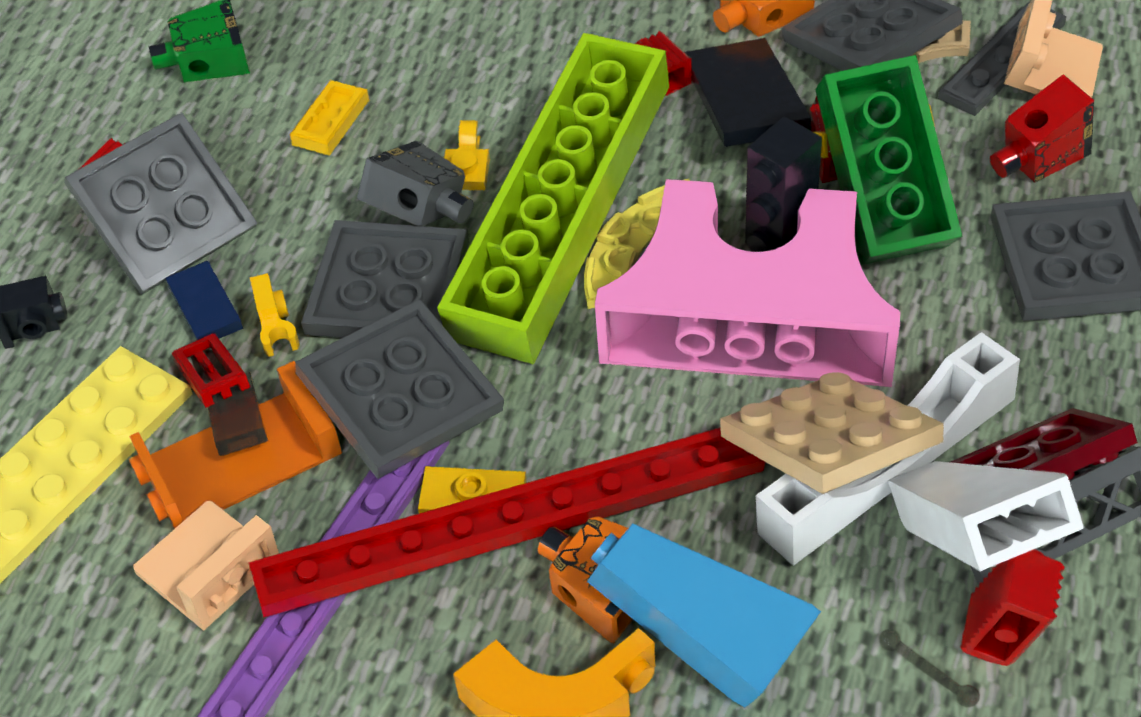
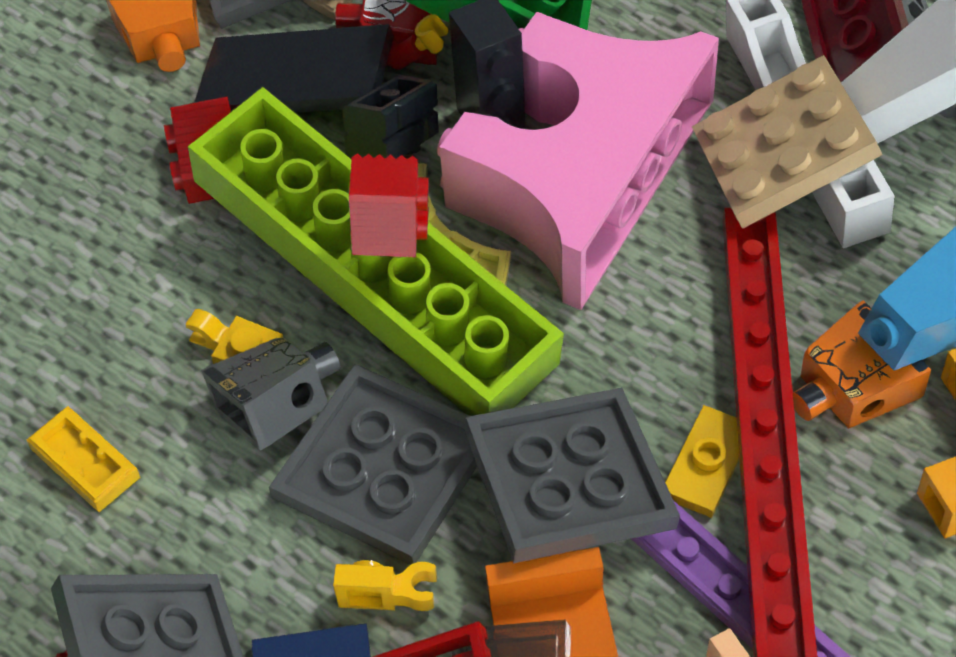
camera: 70 degrees left, 5 degrees up
(555, 150) = (387, 206): none -> brick
(707, 154) = (392, 118): none -> black brick

